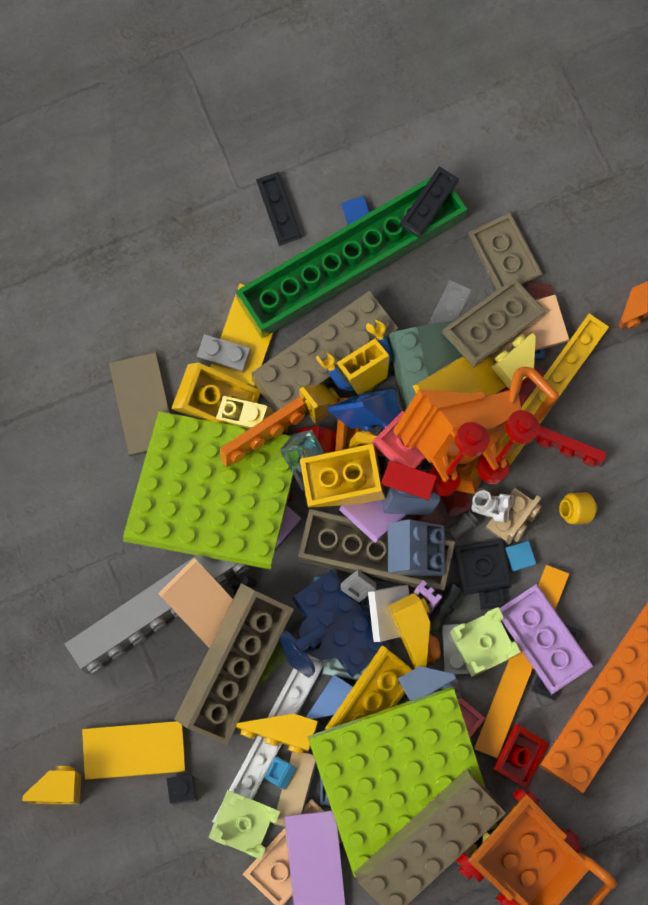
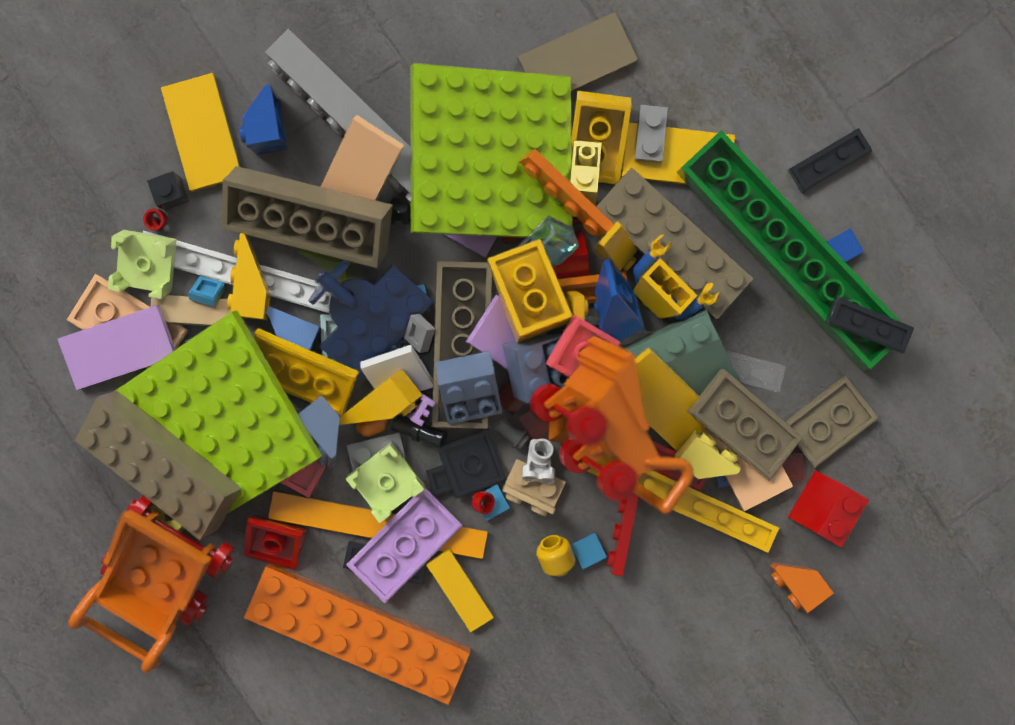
camera: 70 degrees right, 10 degrees up
(56, 788) = (139, 60): yellow slope -> none
(144, 687) = (263, 124): none -> blue slope
(206, 812) = (152, 222): none -> red hinge
(409, 480) = (537, 364): red tile -> none
(519, 561) = (488, 505): none -> red hinge
(579, 480) = (588, 550): none -> dark azure tile
(580, 269) = (828, 508): none -> red slope
(593, 599) = (459, 590): none -> yellow tile

